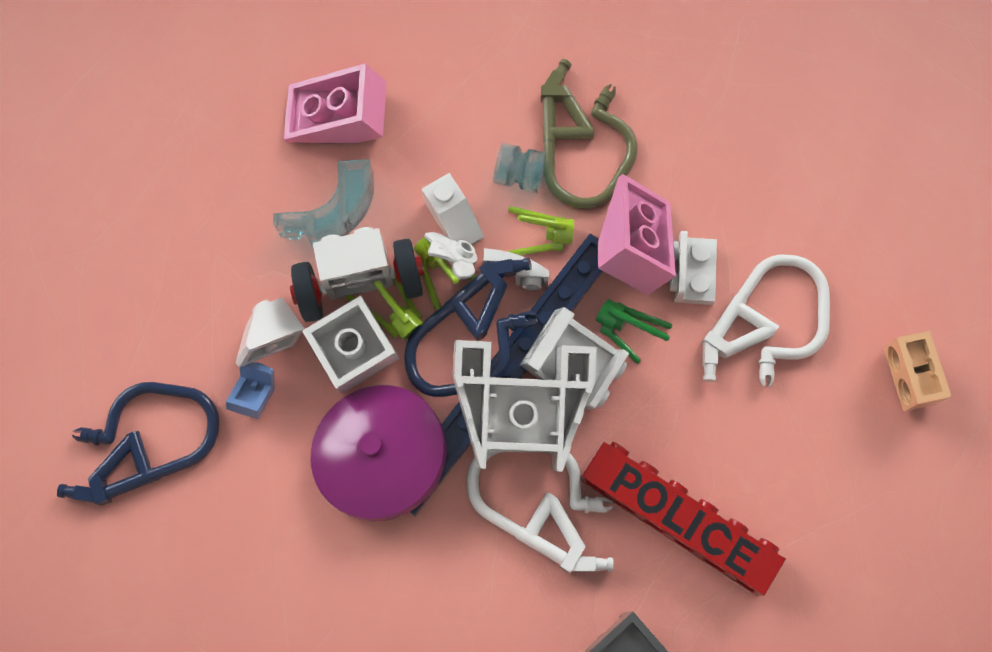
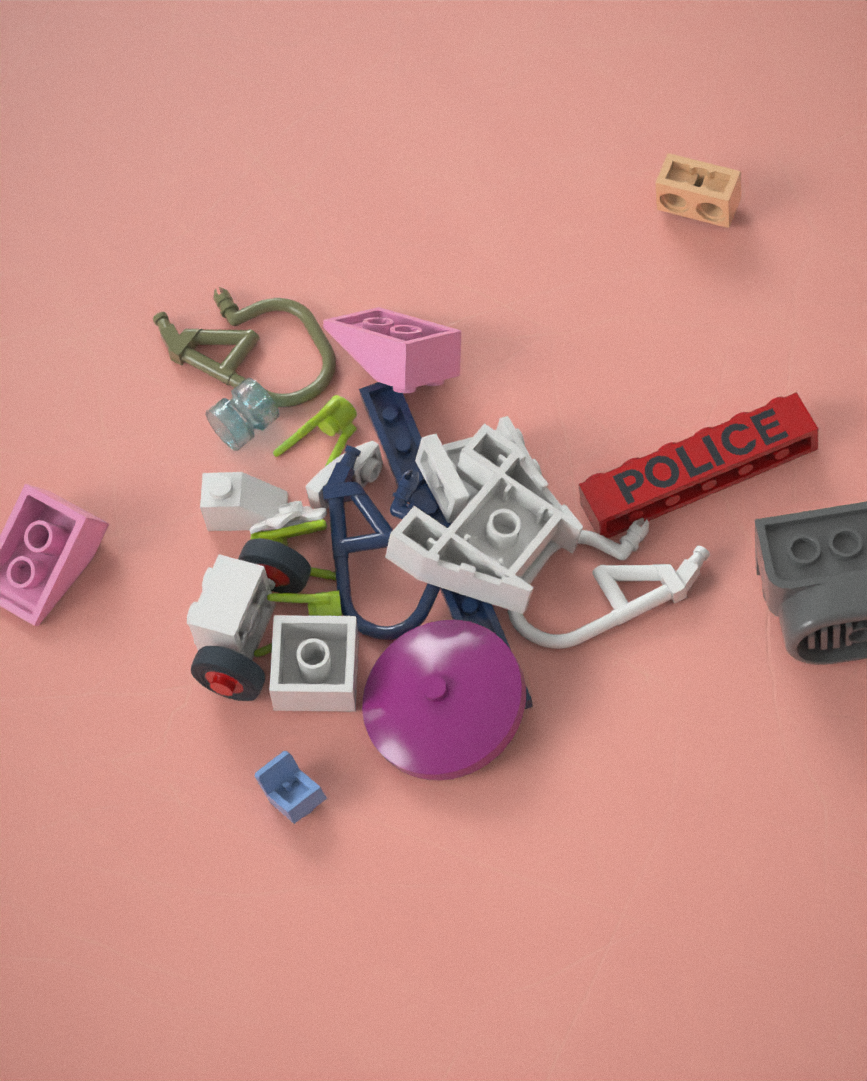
camera: 50 degrees left, 15 degrees down
(99, 491) = (287, 1003): dark blue piece -> none
(268, 331) = (240, 735): white slope -> none
(340, 213) = (148, 583): clear light blue arch -> none
(616, 315) = (461, 415): green plant -> none
(694, 270) = (479, 326): white bracket -> none
(716, 346) = (556, 346): white piece -> none

